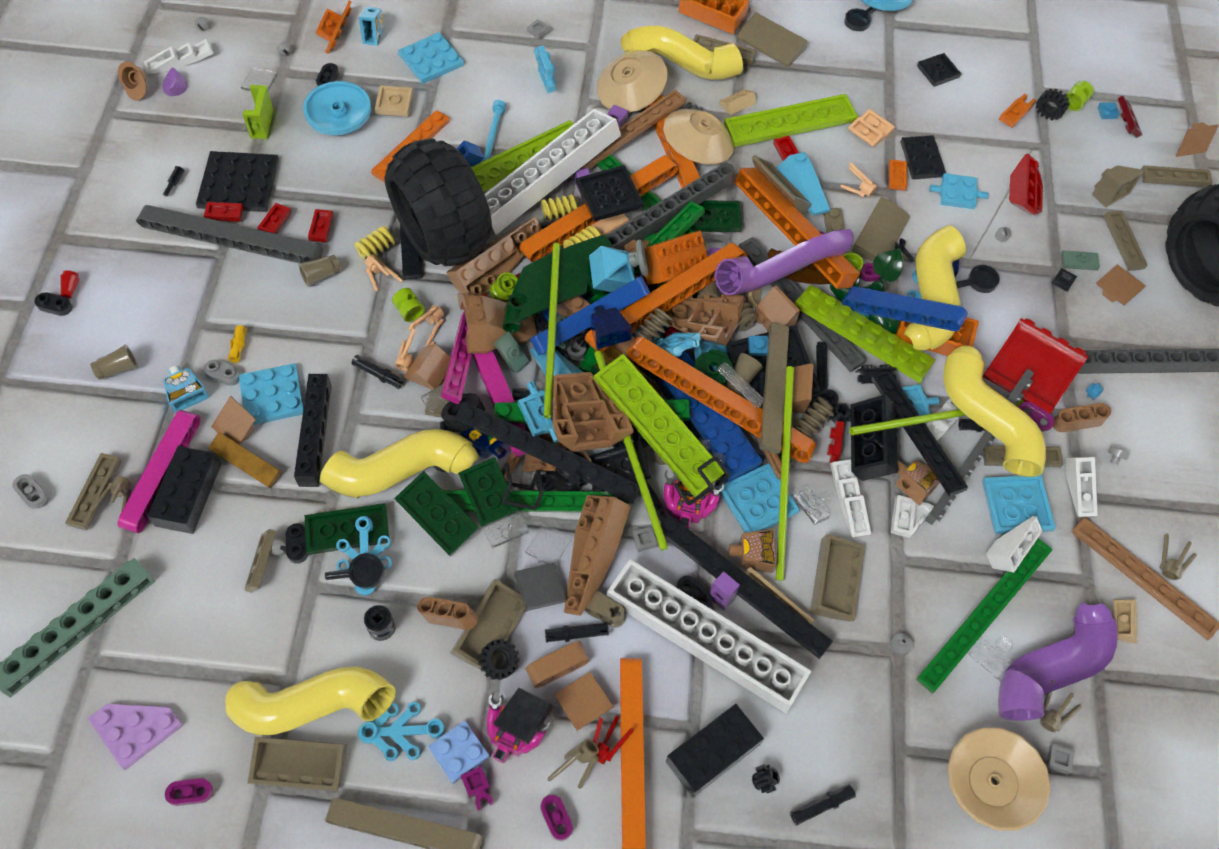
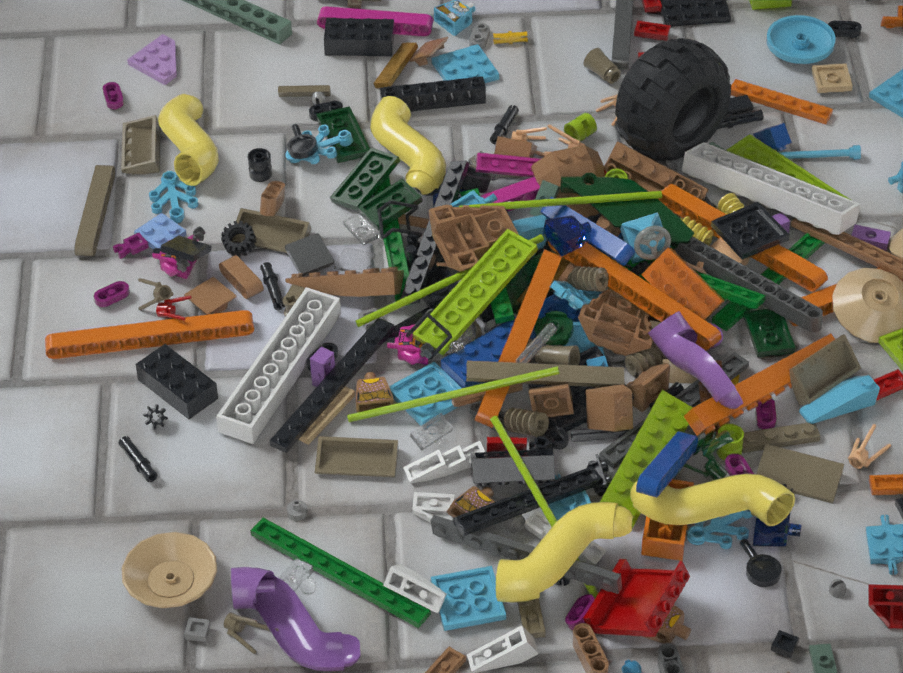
camera: 85 degrees right, 15 degrees down
(814, 342) = (609, 408): none -> medium nougat slope

